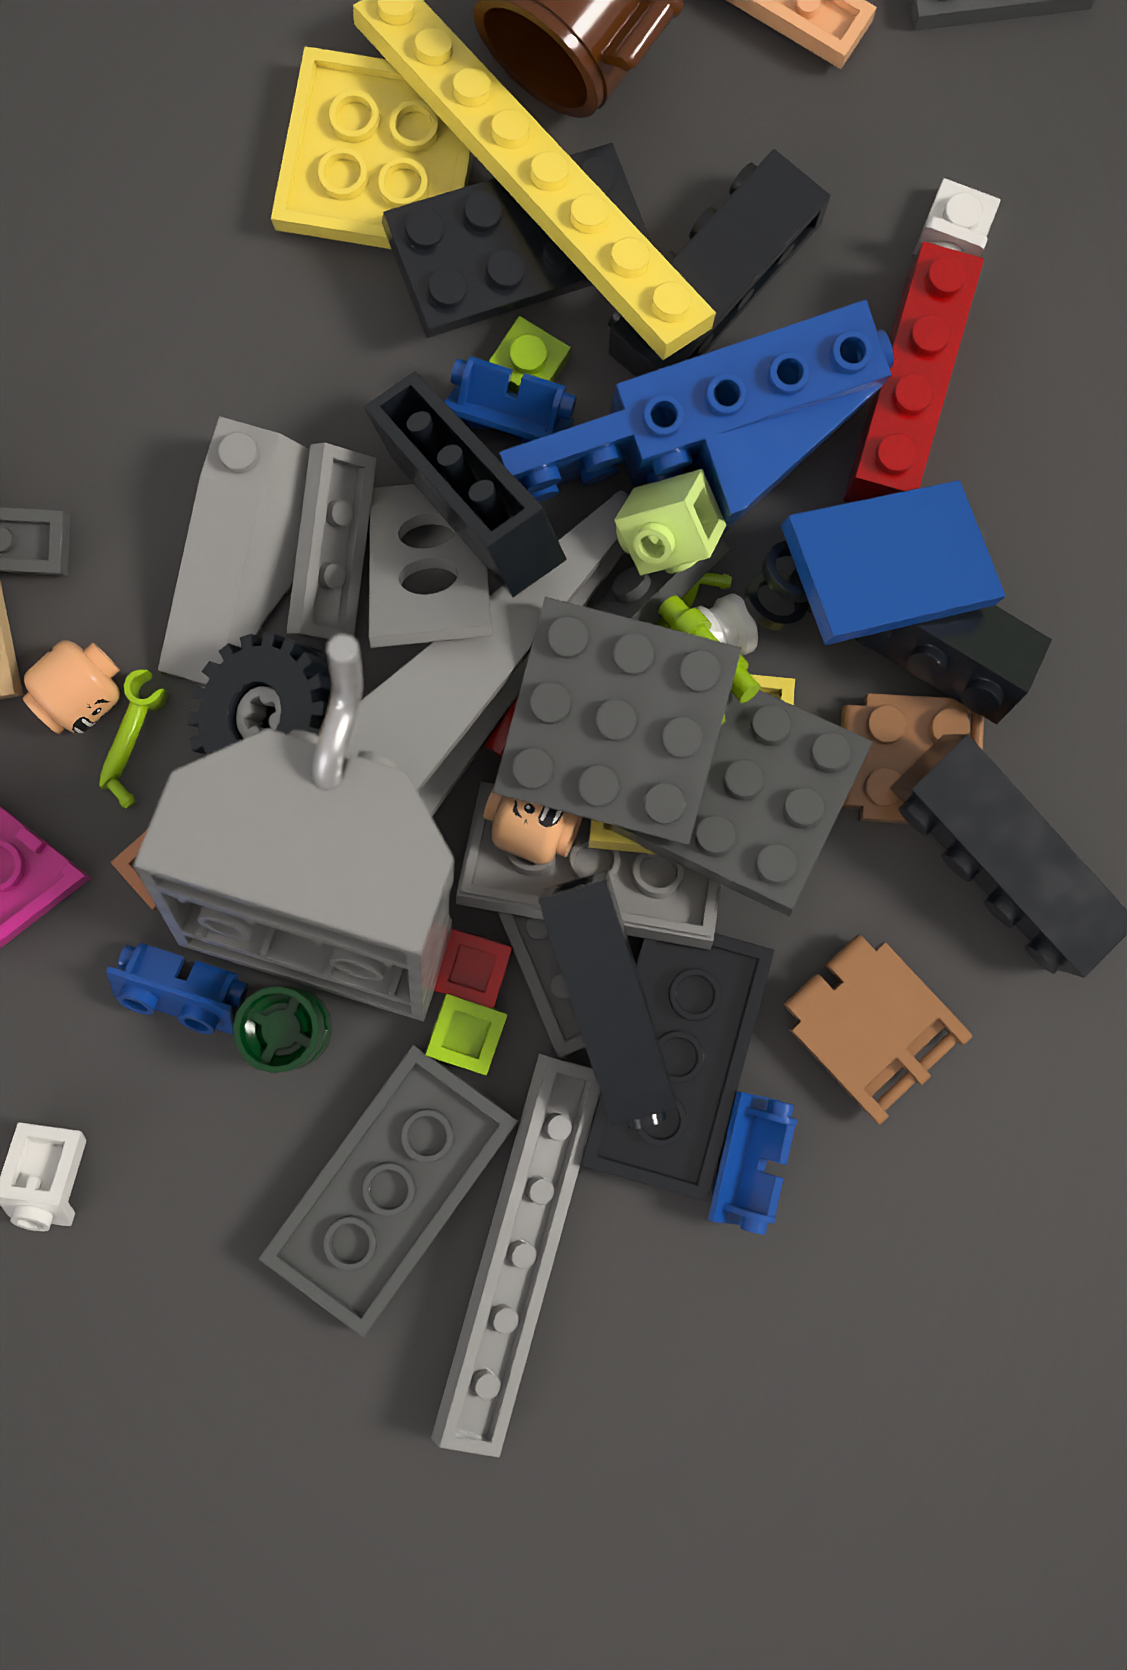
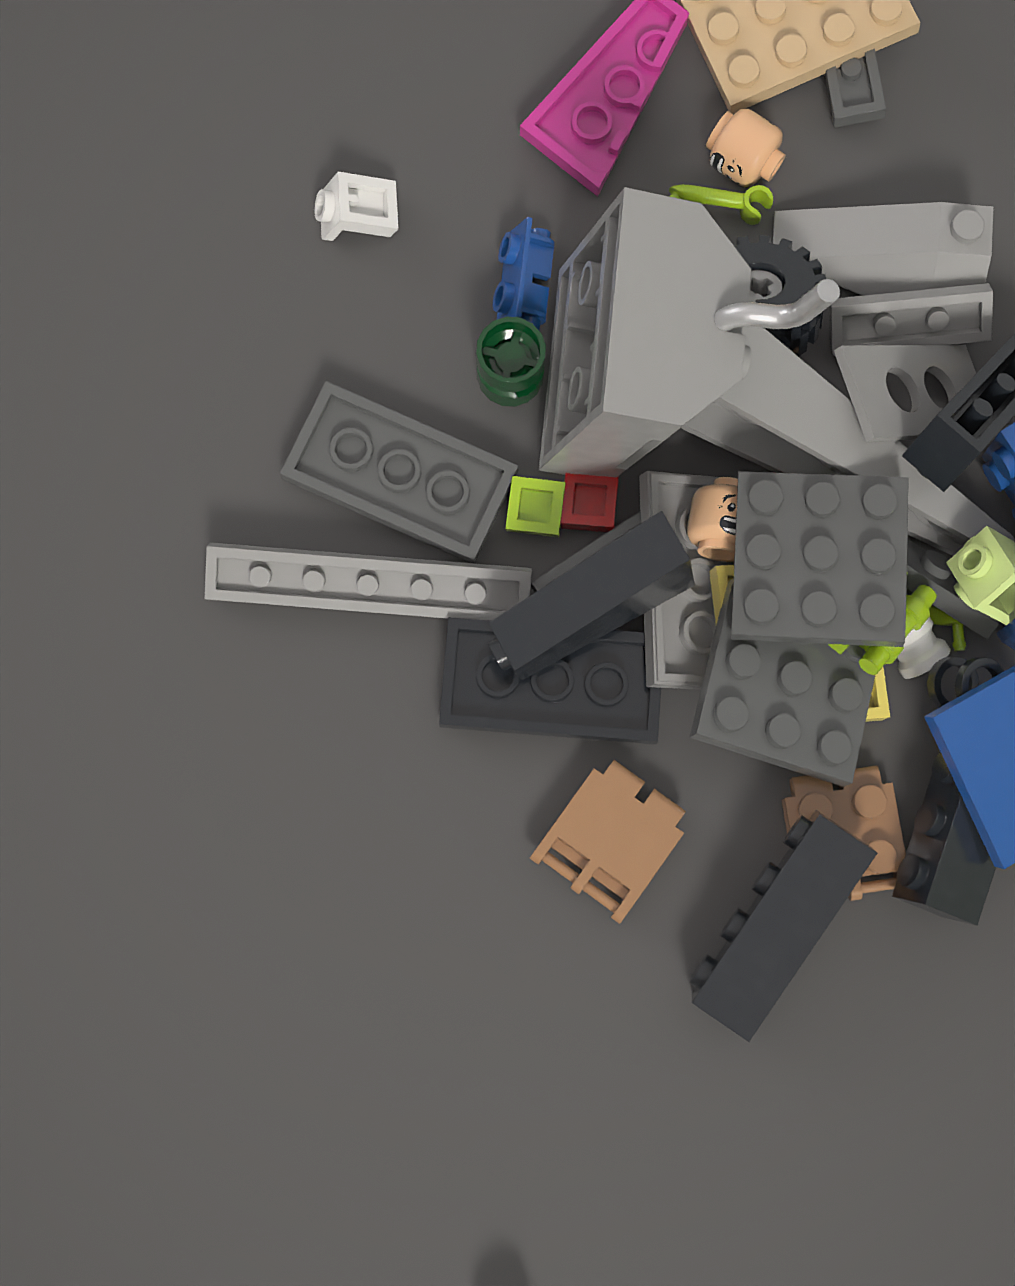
camera: 75 degrees right, 5 degrees down
(743, 1191) = (465, 752): blue hinge -> none

